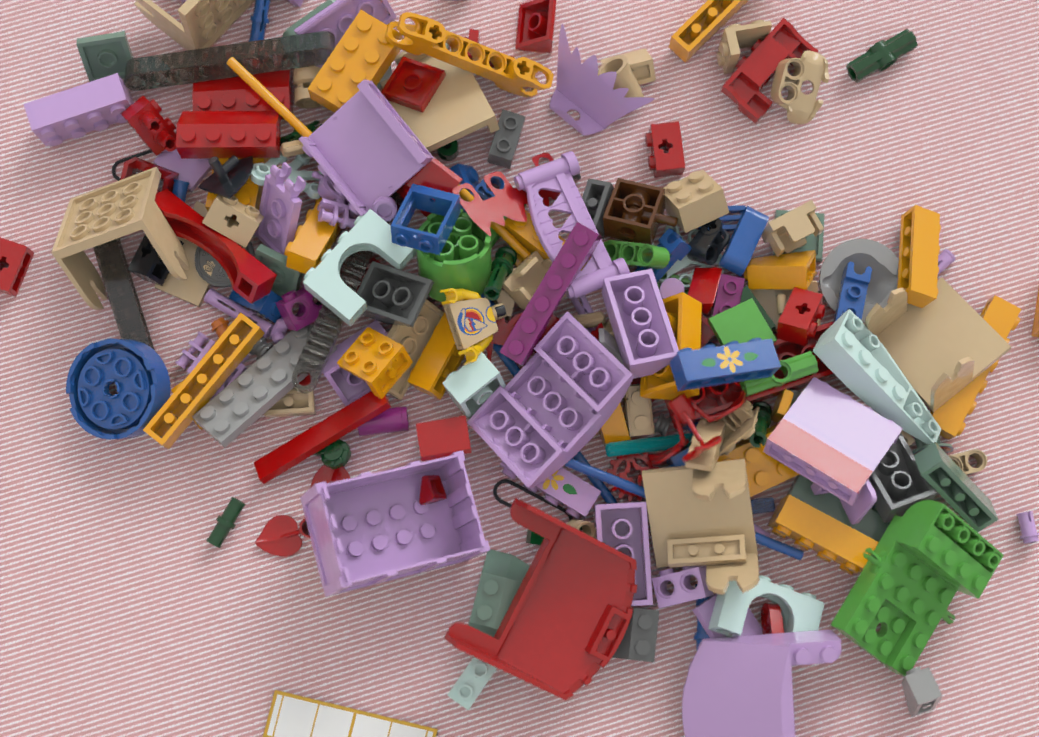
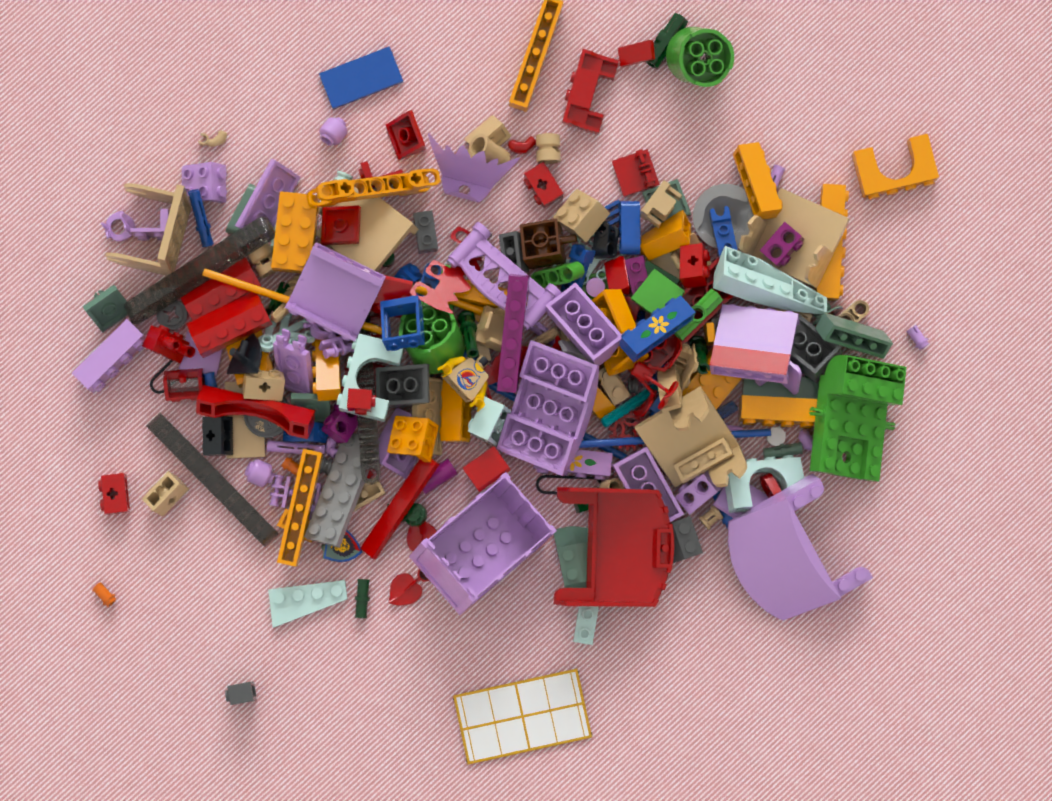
camera: 25 degrees left, 5 degrees up
(26, 565) = (241, 693): none -> dark grey brick
(56, 295) = (165, 493): none -> tan brick
(108, 215) = (176, 424): tan piece -> none
(140, 384) = (257, 531): blue brick -> none
(155, 491) = (298, 601): none -> light aqua wing
(165, 100) = (175, 323): none -> dark grey gear
(182, 320) = (259, 473): none -> lavender head
(236, 456) = (348, 549): none -> shield
(331, 284) = (360, 401): none -> red brick
(385, 208) = (367, 326): lavender tile -> none
(431, 489) = (495, 508): red slope -> none
(662, 98) = (521, 147): none -> red arm
(688, 618) = (708, 523): none -> tan bush
(692, 107) = (548, 148): none -> tan wheel
(738, 37) = (554, 92): tan bracket -> none
(778, 184) = (635, 172): none -> red hinge
(799, 106) = (619, 76): tan piece -> none
(806, 566) = (777, 436): none -> white tile
(806, 585) = (783, 450): none -> sand green pin
(839, 586) = (805, 439): none -> lavender arm
(844, 52) = (636, 53): none -> red tile
(897, 86) = (685, 51): none -> bright green brick
(912, 336) = (777, 241): none -> magenta brick
(920, 691) = (891, 486): light grey slope -> none

